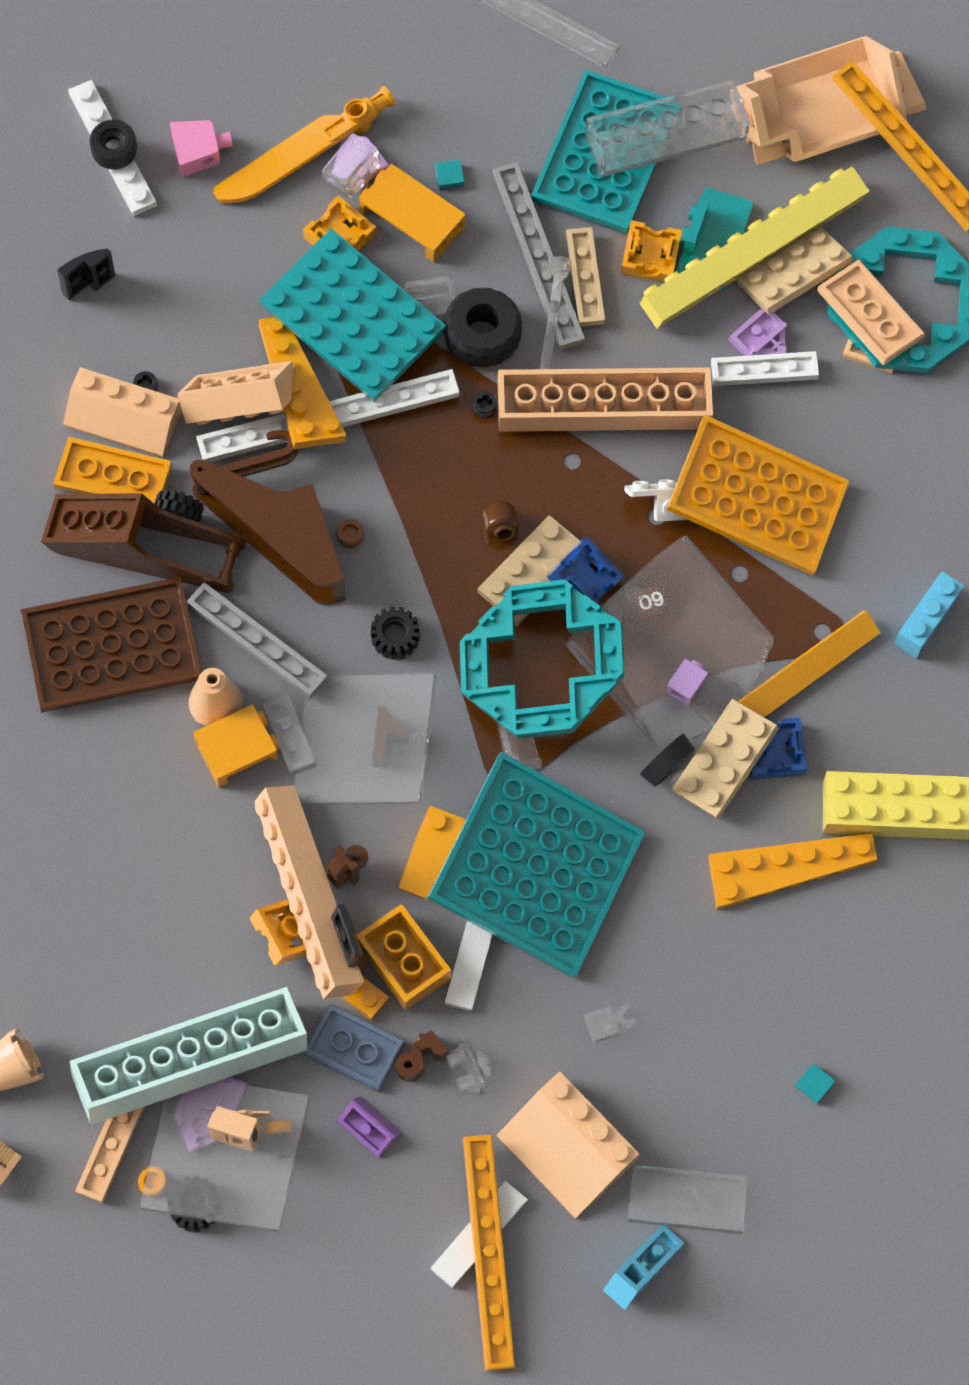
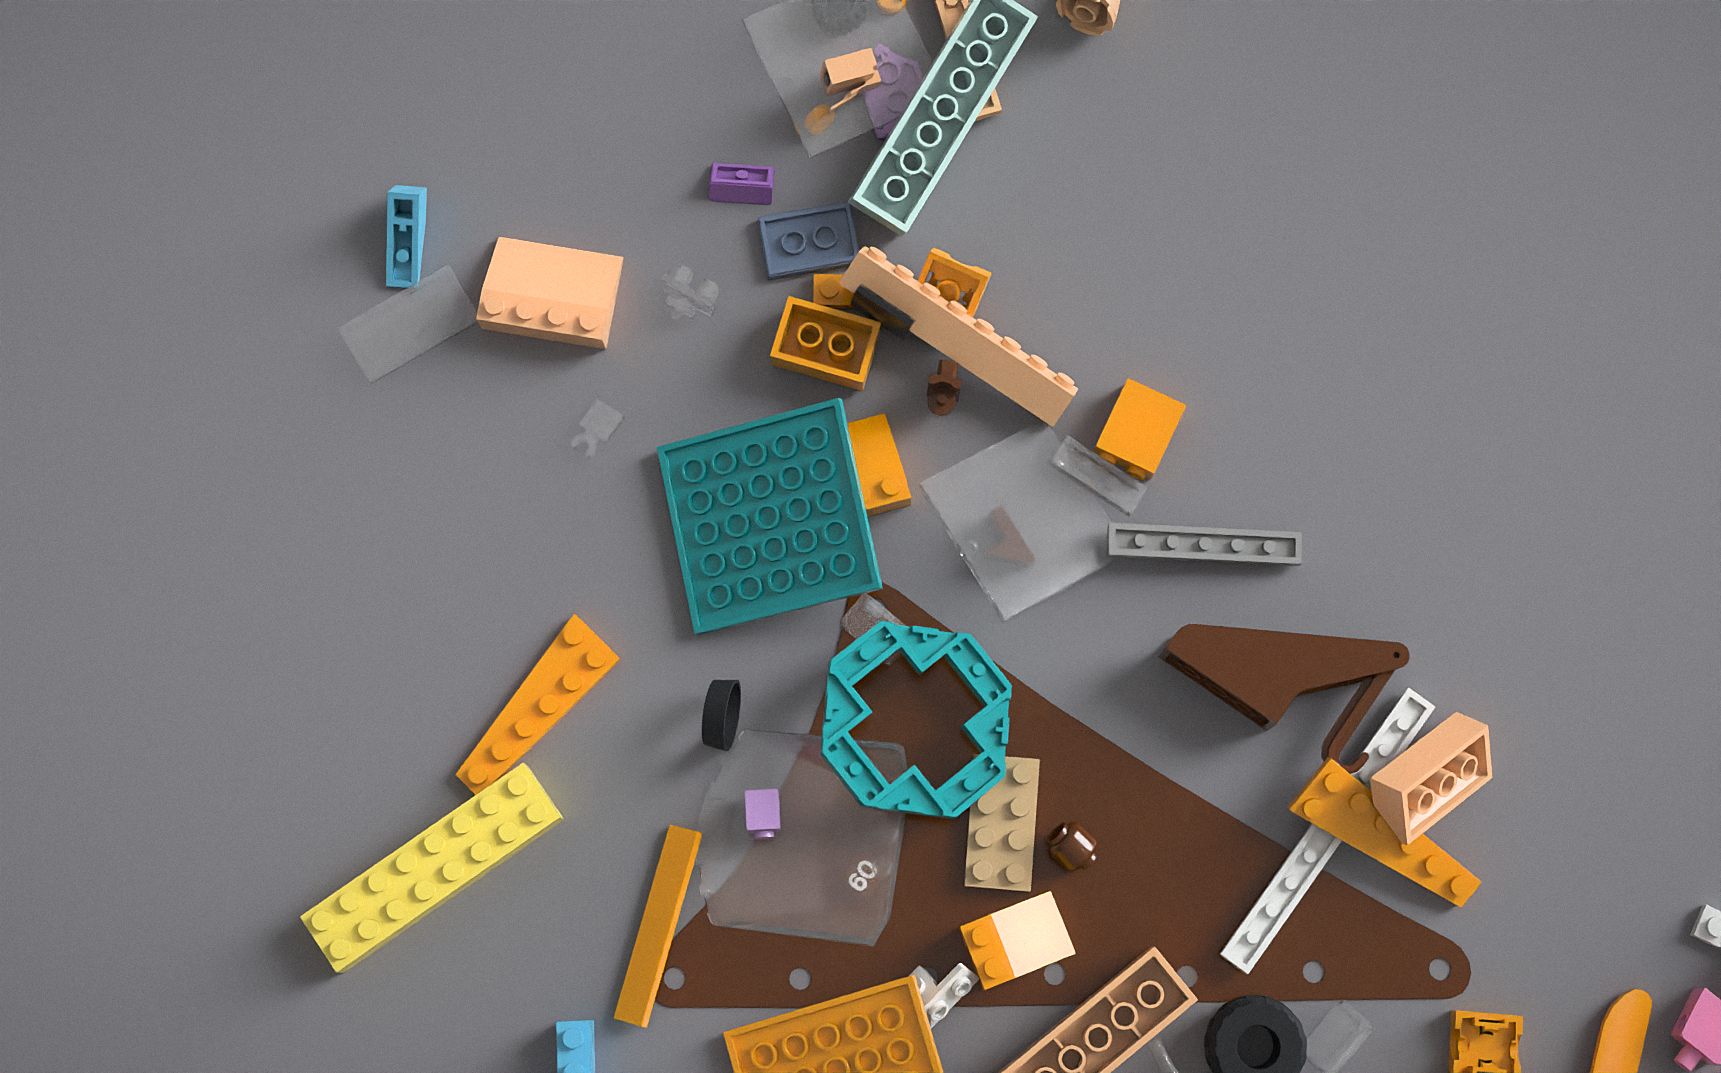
camera: 145 degrees right, 10 degrees up
(90, 269) = (1694, 787): black slope -> none
(105, 469) = (1480, 608): light orange plate -> none
(105, 531) = (1433, 538): reddish brown piece -> none
(111, 644) = (1335, 440): reddish brown plate -> none
(122, 412) = (1527, 676): light nougat slope -> none
(140, 377) = (1541, 731): black bush -> none
(180, 504) = (1386, 612): black tyre -> none
(214, 697) = (1194, 461): light nougat cone -> none
(350, 533) = (1207, 726): dark orange tile -> none
(352, 315) = (1393, 953): teal plate -> none
(390, 618) = (1099, 643): black tyre -> none
(411, 1065) = (744, 261): reddish brown leg -> none
(460, 1254) = (573, 161): white tile -> none
(468, 967) = (759, 378): white tile -> none
(478, 400) = (1197, 969): black bush -> none
(488, 1253) = (552, 148): light orange tile -> none
(576, 571) = (958, 851): blue brick -> none
(583, 493) = (1016, 940): none -> slope
(725, 759) = (669, 760): tan plate -> none
(778, 762) = (622, 804): blue brick -> none
(814, 1083) = (367, 514): teal tile -> none

